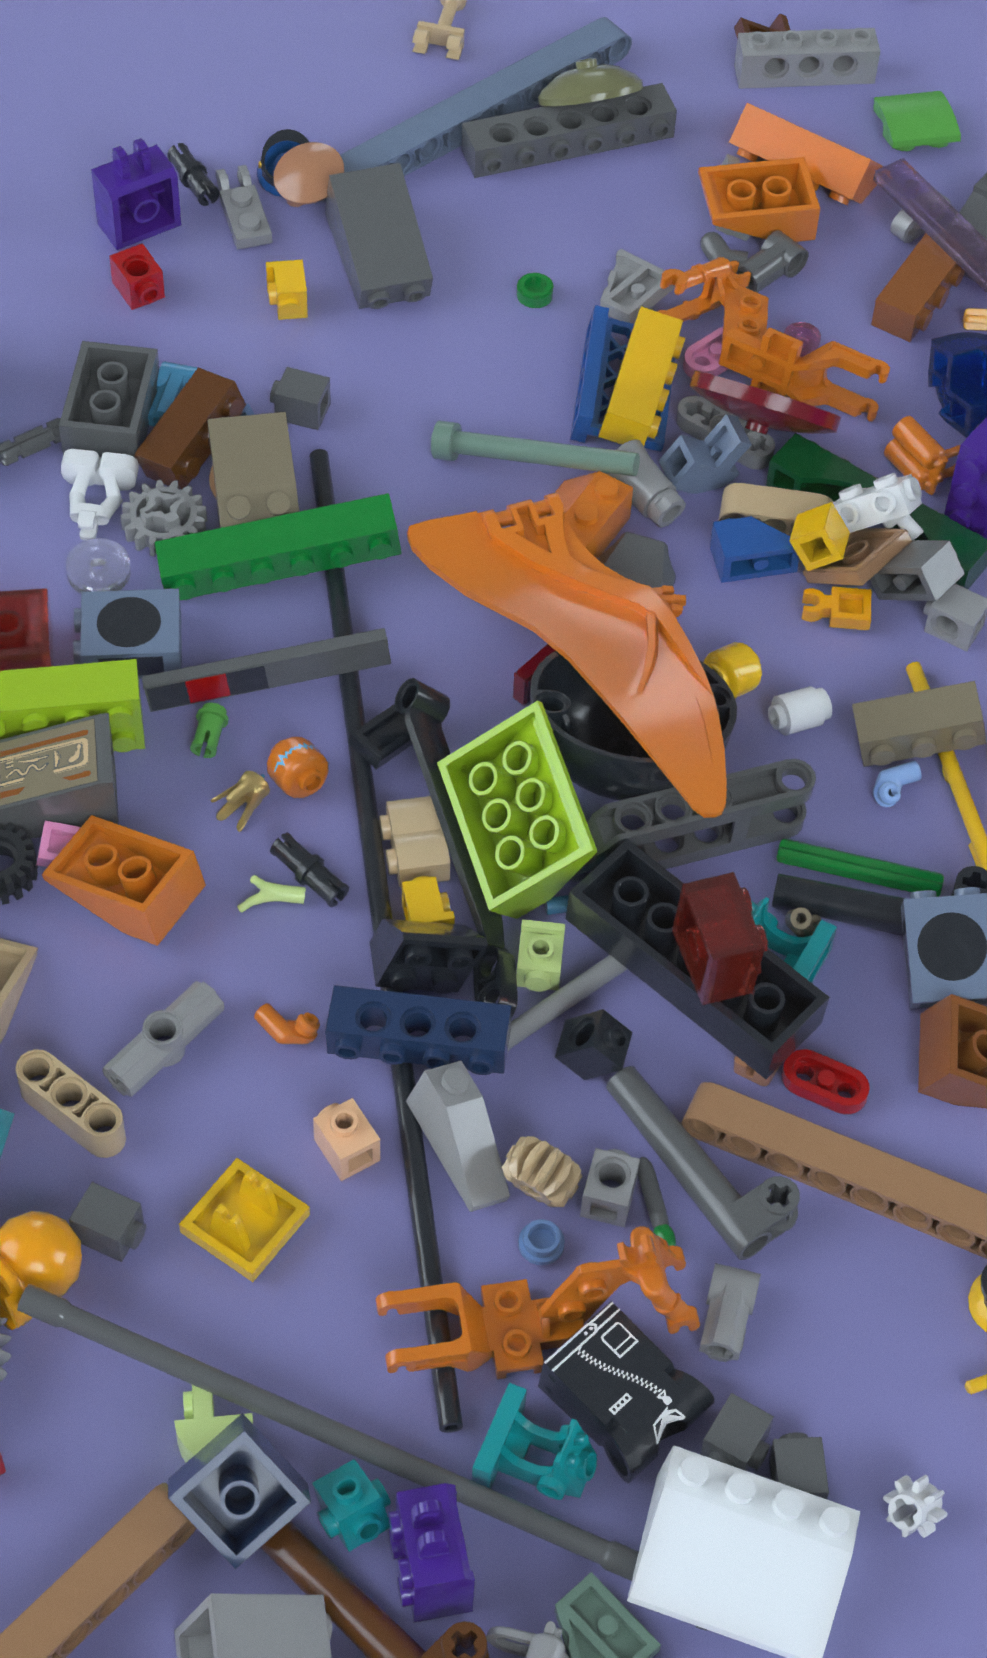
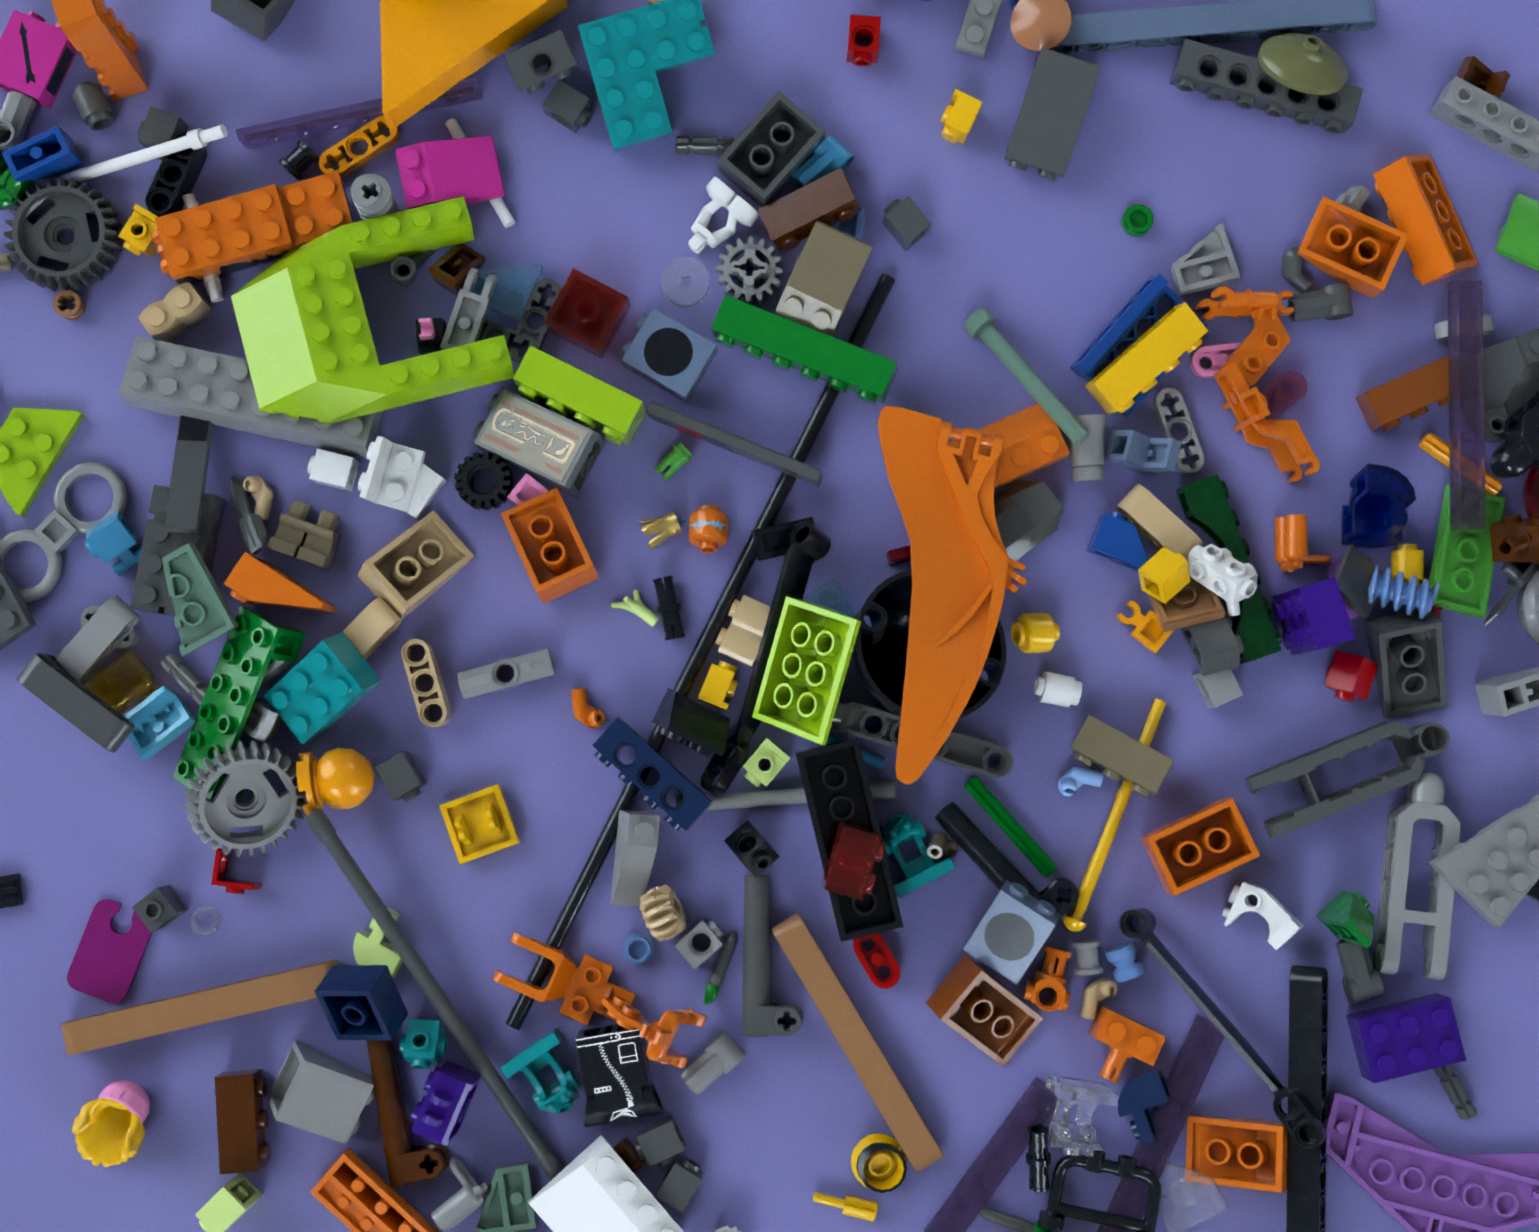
camera: 35 degrees right, 30 degrees up
(346, 1138) = (569, 810): light nougat brick -> none
(763, 408) = (1208, 444): dark red dish -> none

